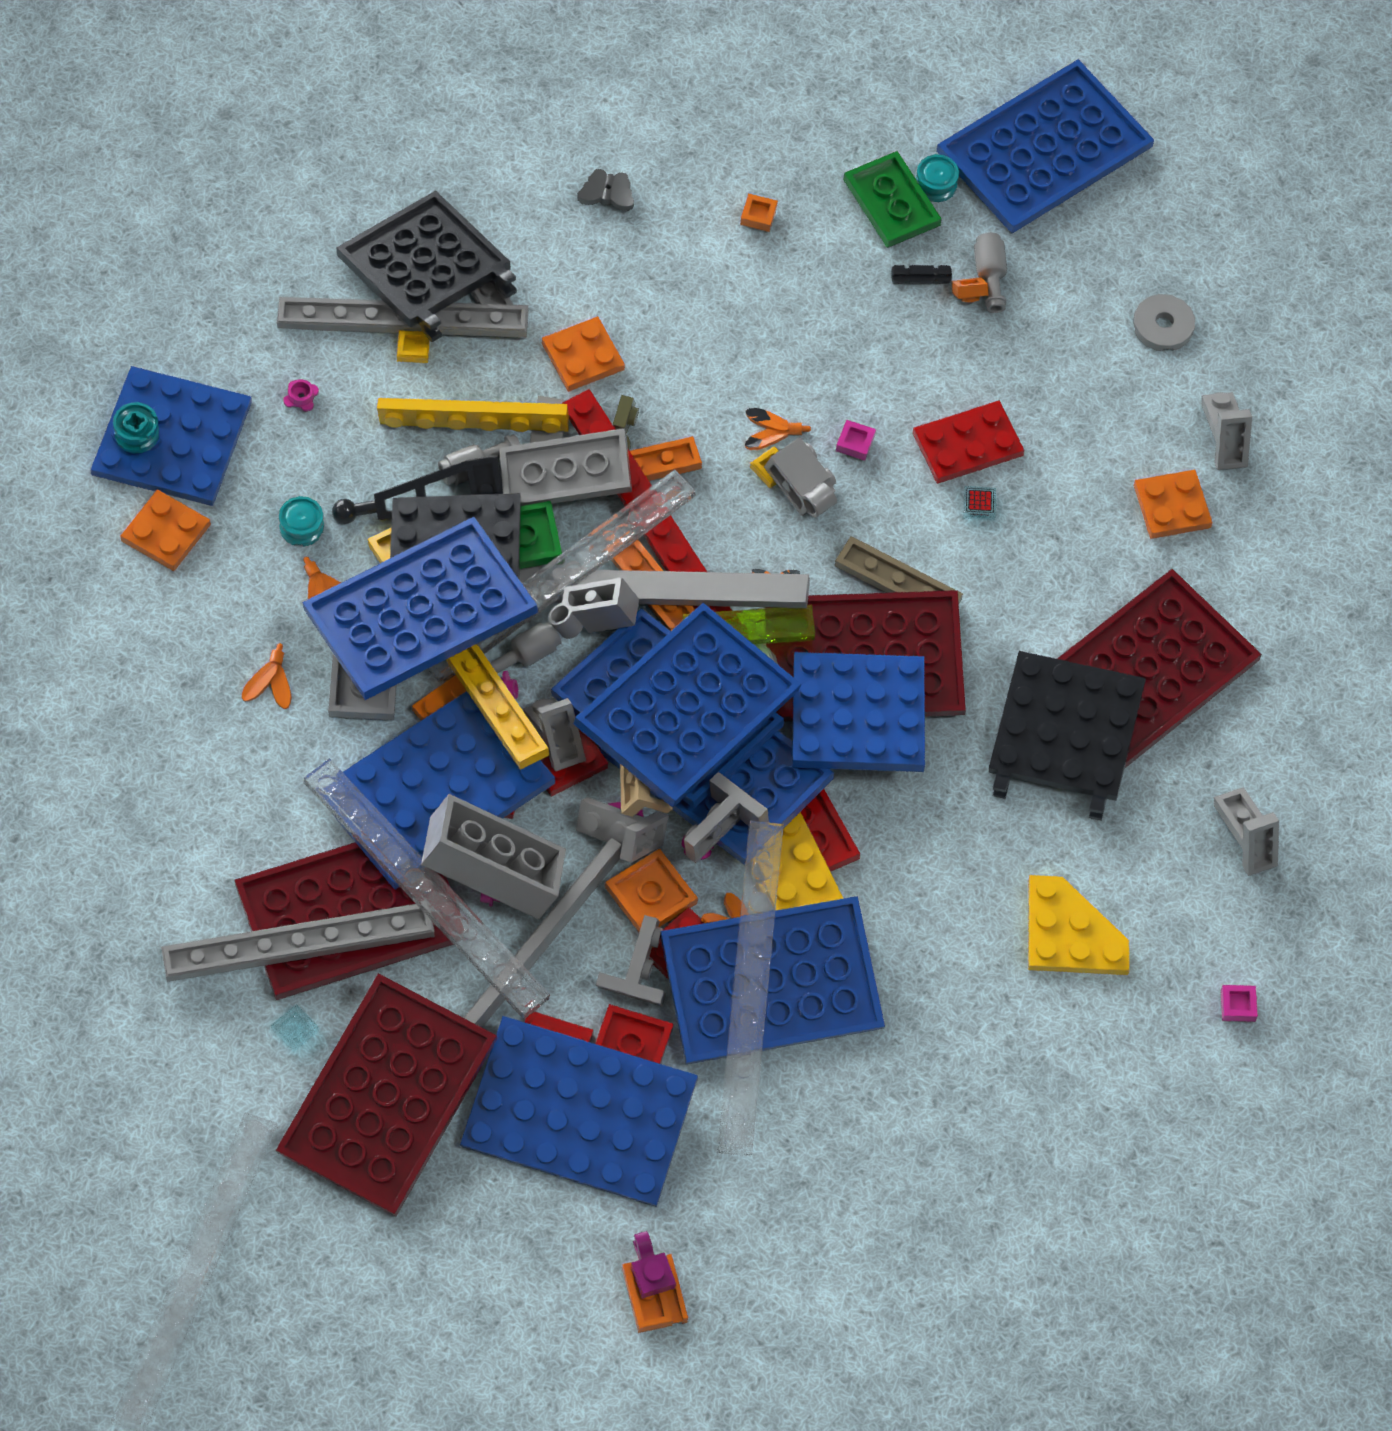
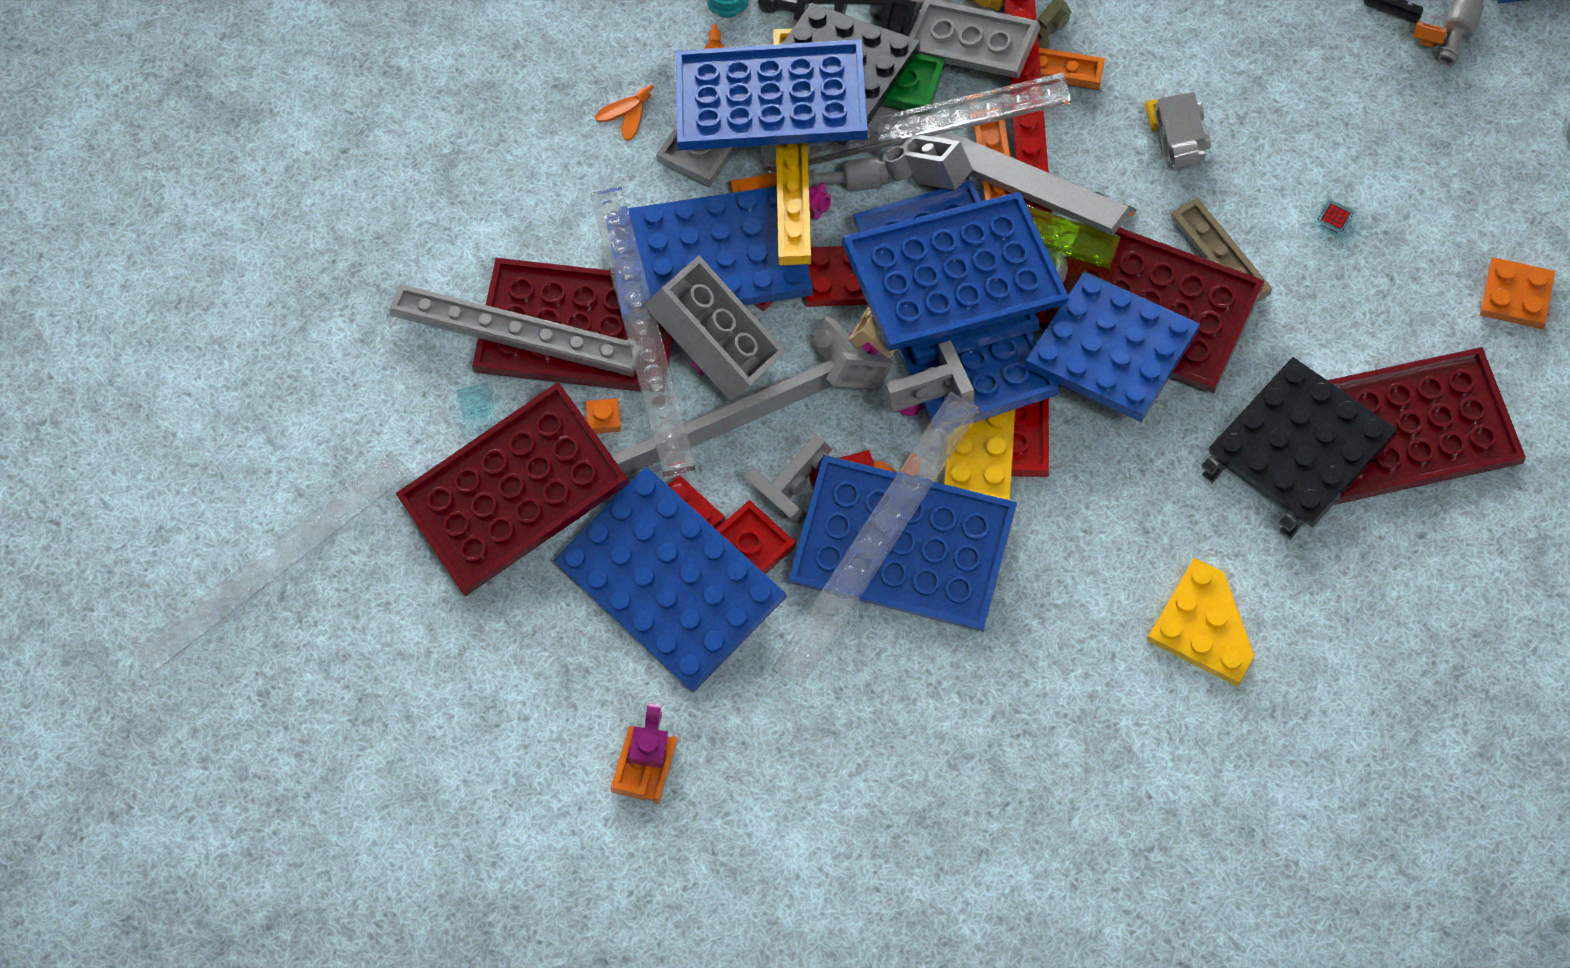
camera: 35 degrees right, 0 degrees up
(425, 983) = (604, 415): none -> orange plate
(556, 727) = (832, 259): light grey bracket -> none
(651, 889) = (845, 421): orange plate -> none
(776, 429) = (1185, 83): orange piece -> none
(855, 440) = (1250, 120): dark pink plate -> none
(968, 441) = (1355, 163): red plate -> none
(1239, 1003) = (1327, 758): dark pink plate -> none
(1253, 831) = (1425, 609): light grey bracket -> none

